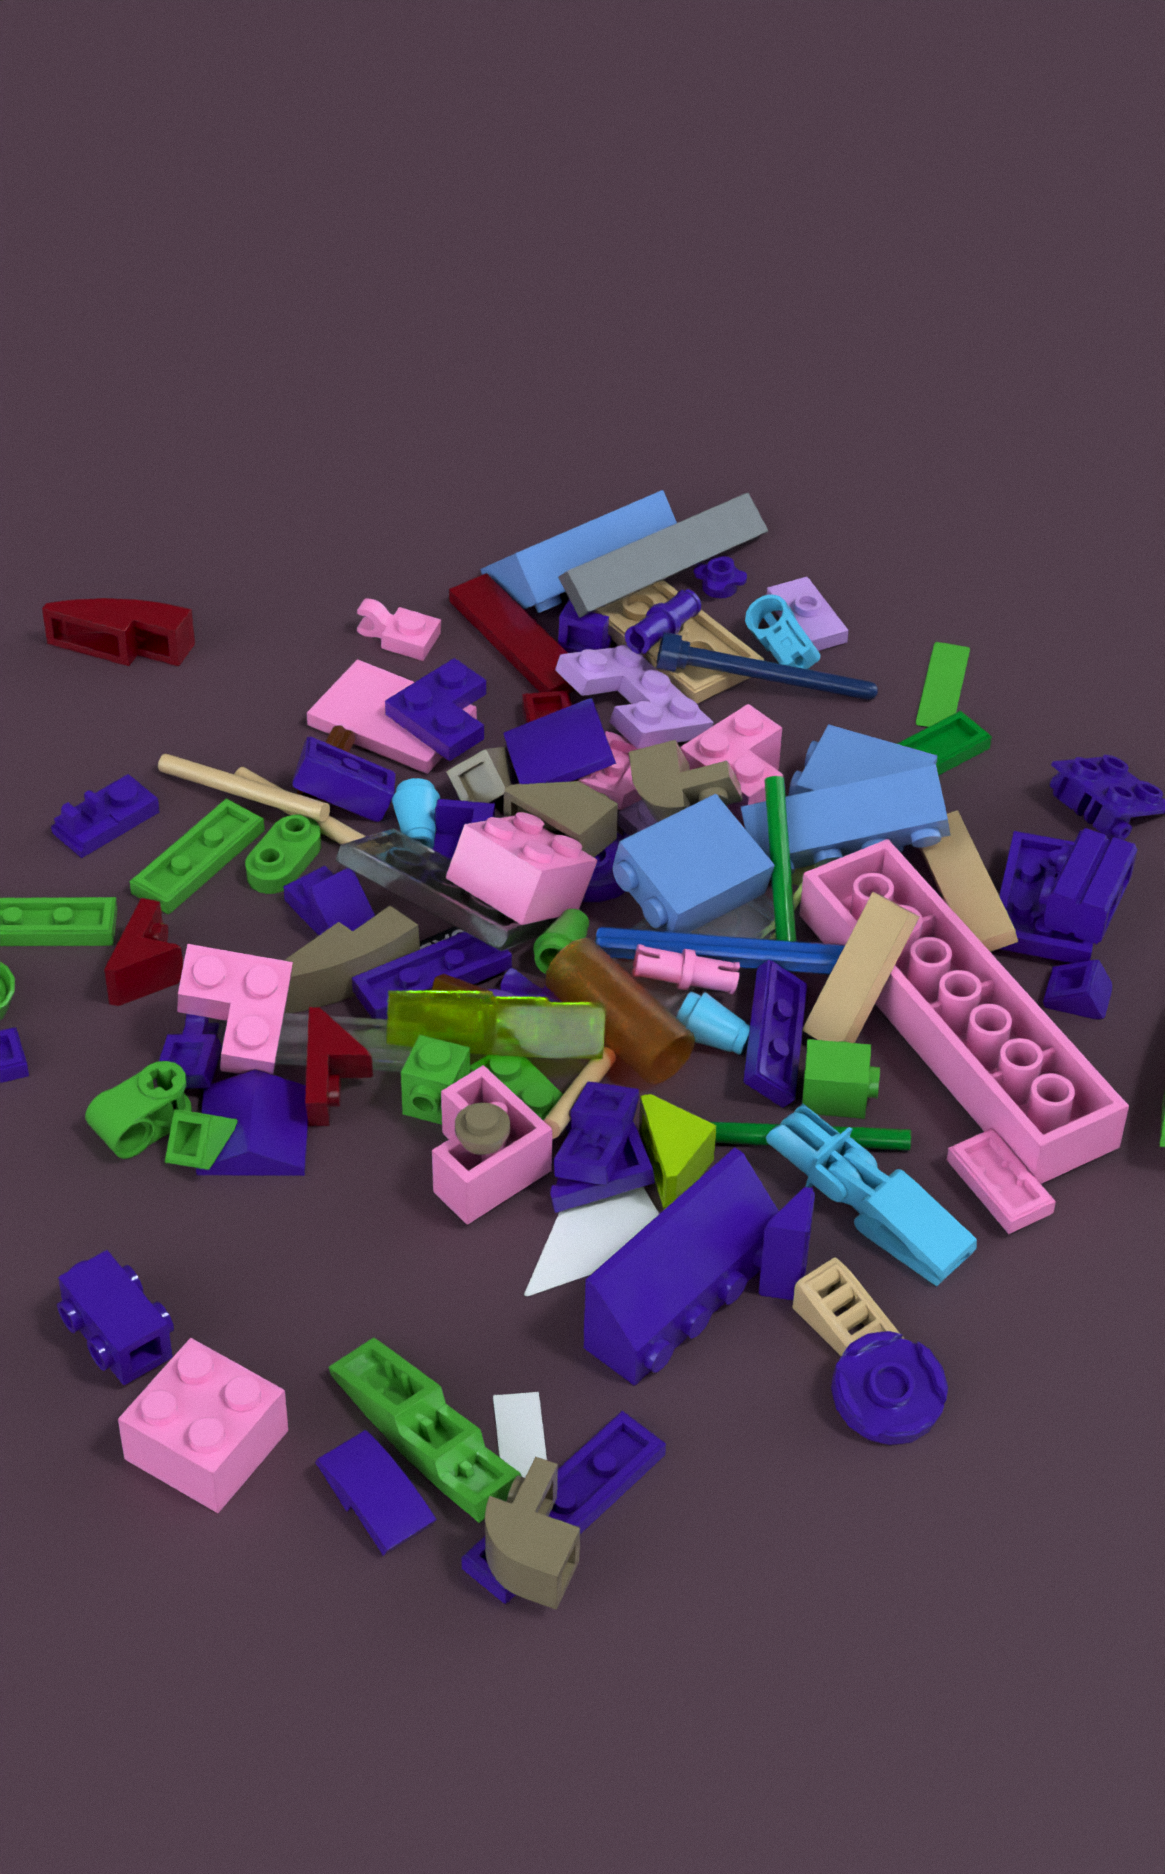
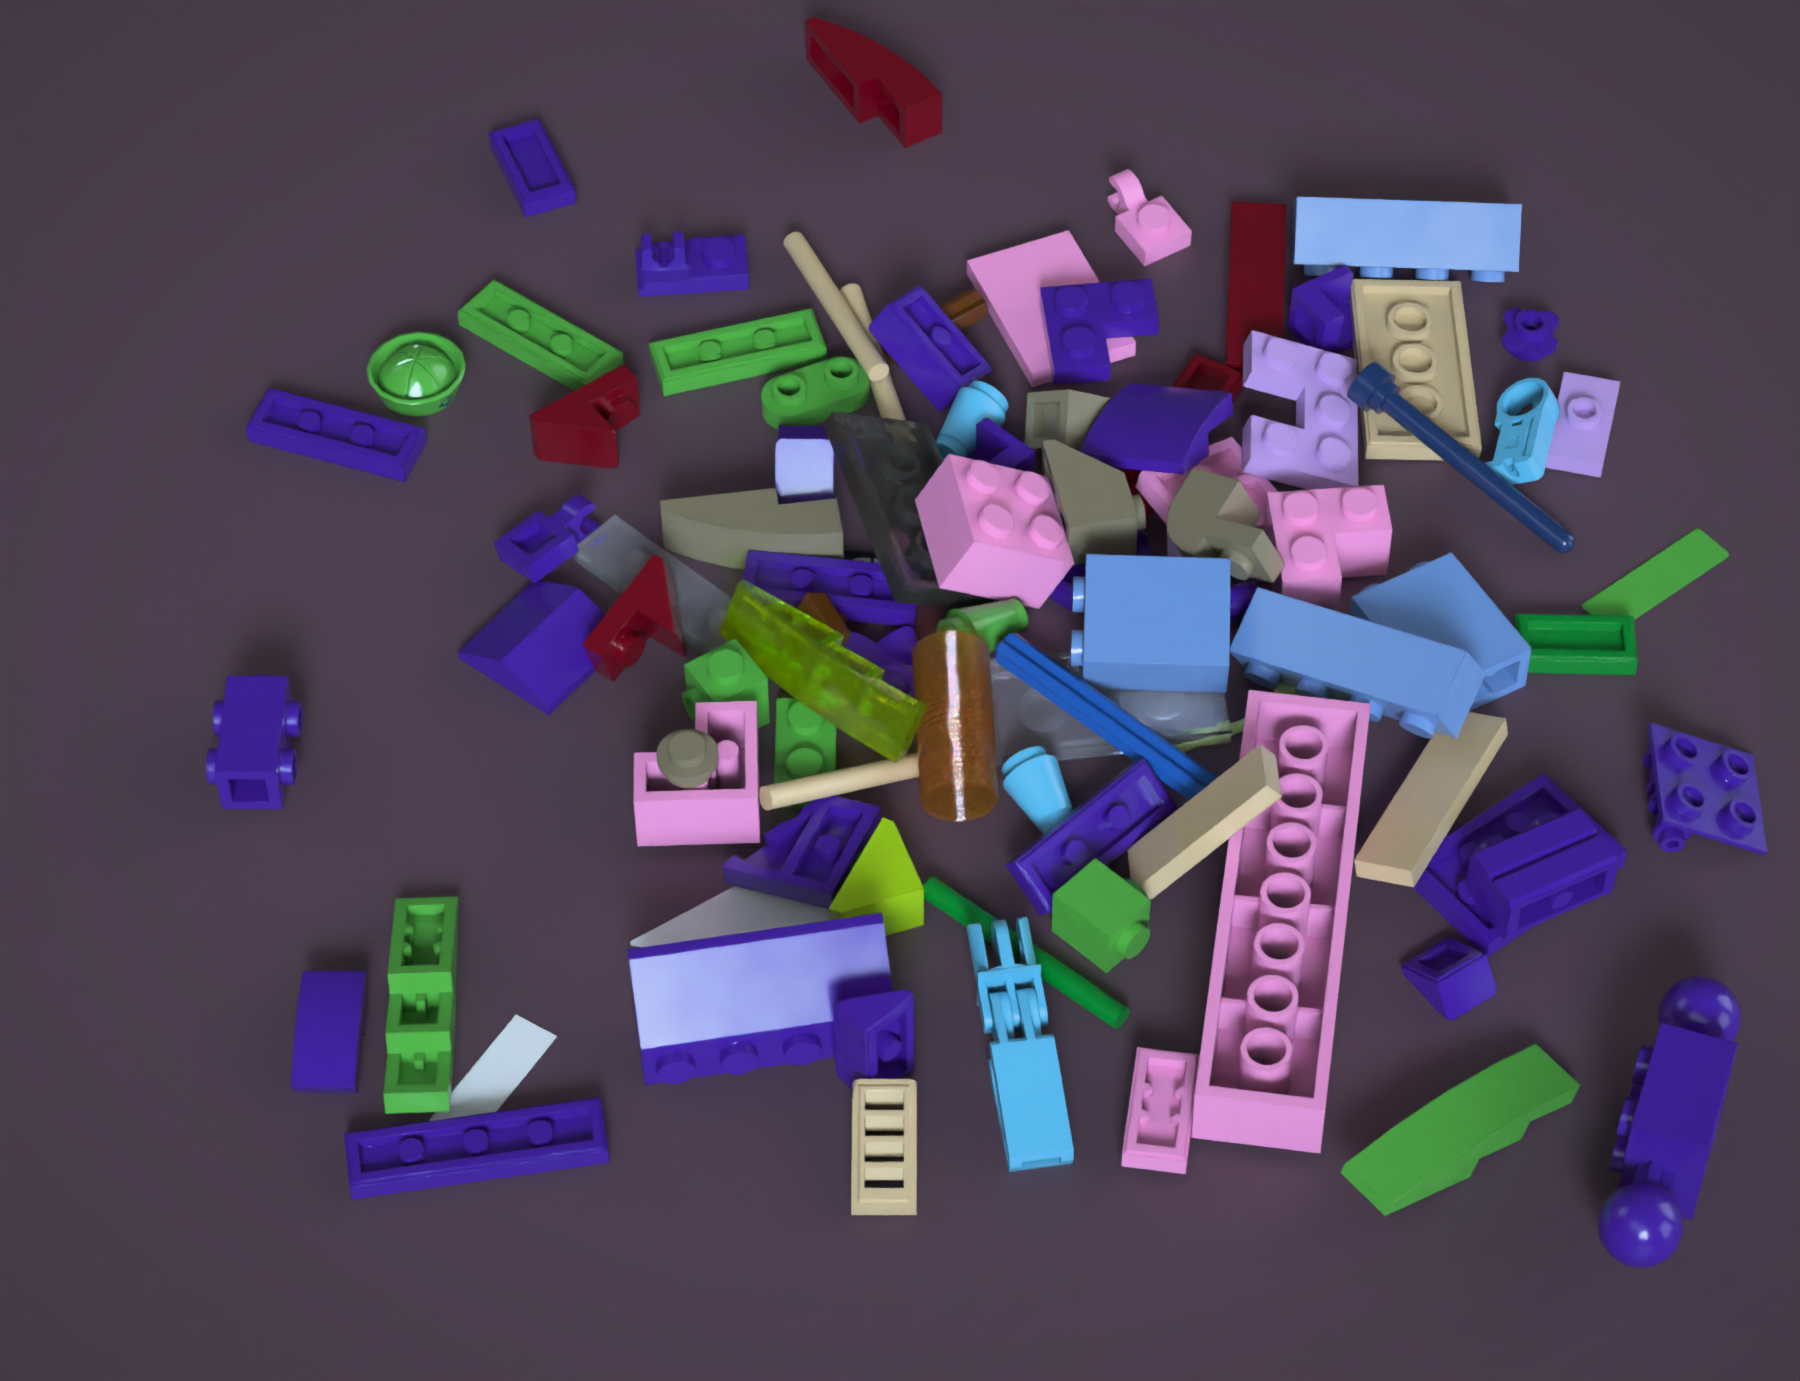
camera: 40 degrees right, 5 degrees up
(135, 1112) = (449, 569): bright green piece -> none
(197, 1138) = (478, 622): bright green slope -> none
(203, 1425) = (241, 882): bright pink brick -> none
(244, 992) = (614, 523): bright pink brick -> none
(524, 1545) = (389, 1146): dark tan brick -> none
(597, 1133) = (823, 825): dark purple slope -> none
(662, 554) = (1471, 277): tile -> none
(662, 618) = (1399, 349): dark purple pin -> none
(685, 969) = (1057, 722): bright pink pin -> none
(780, 857) = (1247, 666): green bar -> none
(889, 1388) = (853, 1231): dark purple tile -> none

